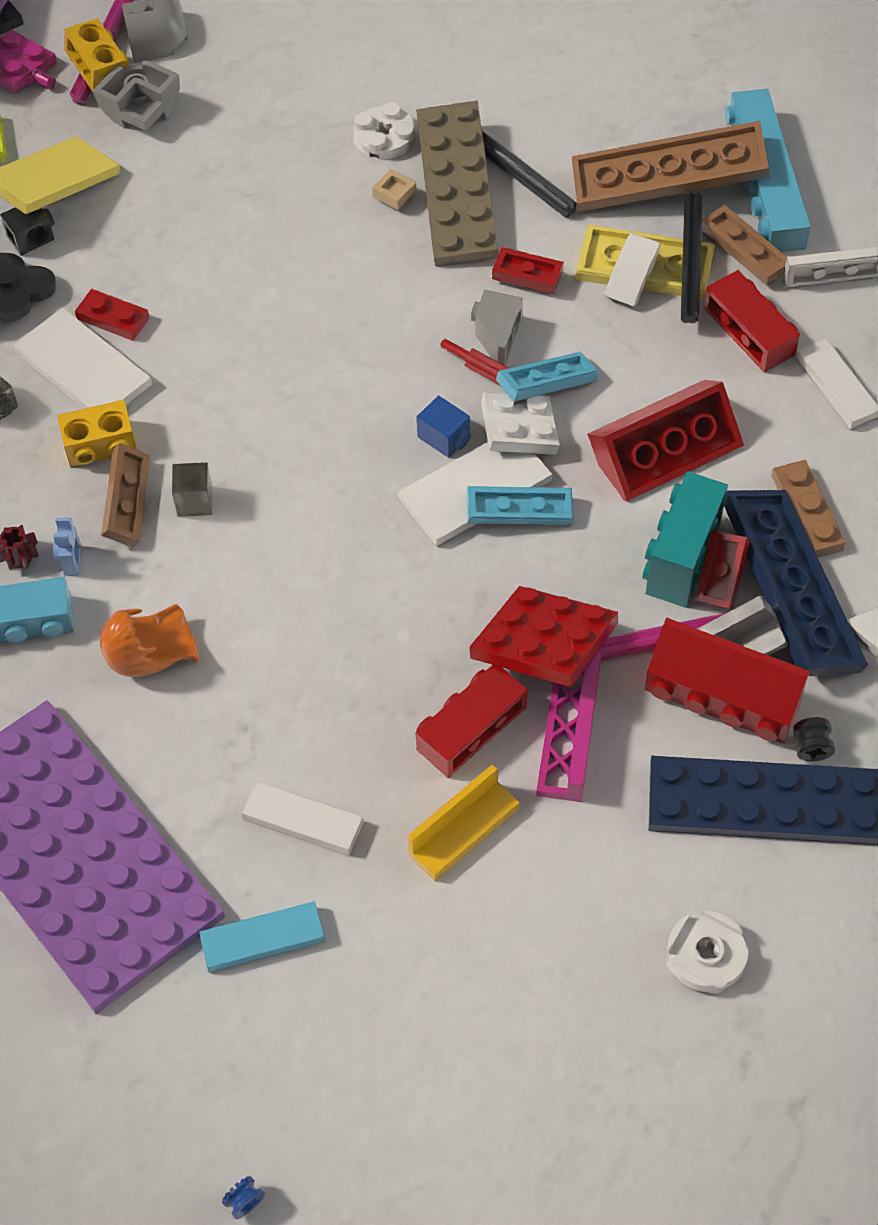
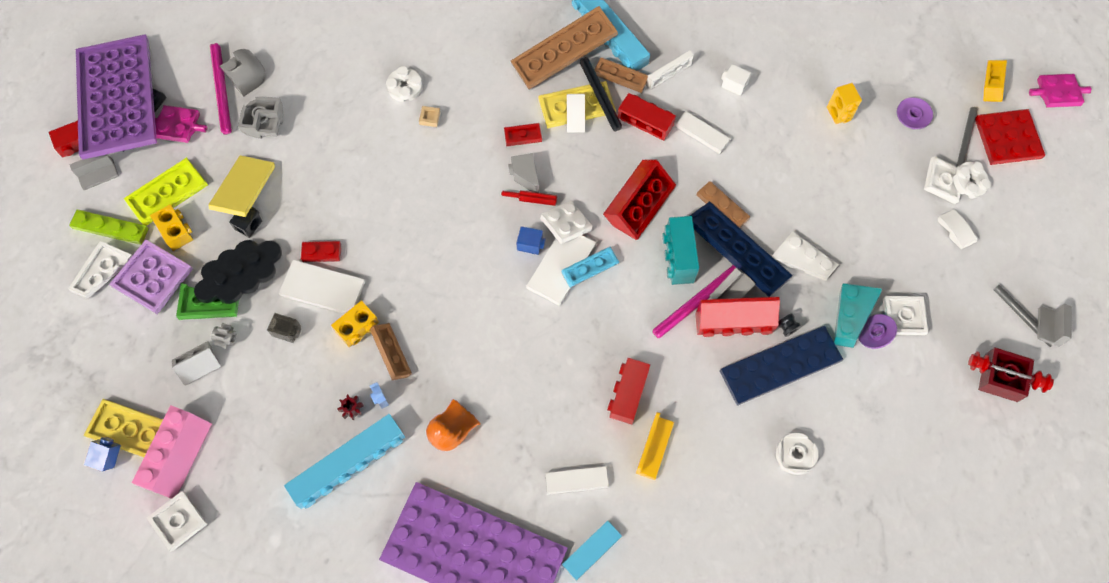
camera: 30 degrees left, 10 degrees up
(93, 51) = (223, 106): yellow brick -> none
(192, 489) = (424, 333): clear smoke brick -> none
(457, 183) = (460, 99): dark tan plate -> none
(528, 176) = (485, 78): black axle -> none
(544, 635) = (642, 332): red plate -> none
(547, 376) = (566, 190): medium azure tile -> none
(580, 740) = (682, 368): dark pink fence -> none
(722, 569) = (706, 258): red plate -> none

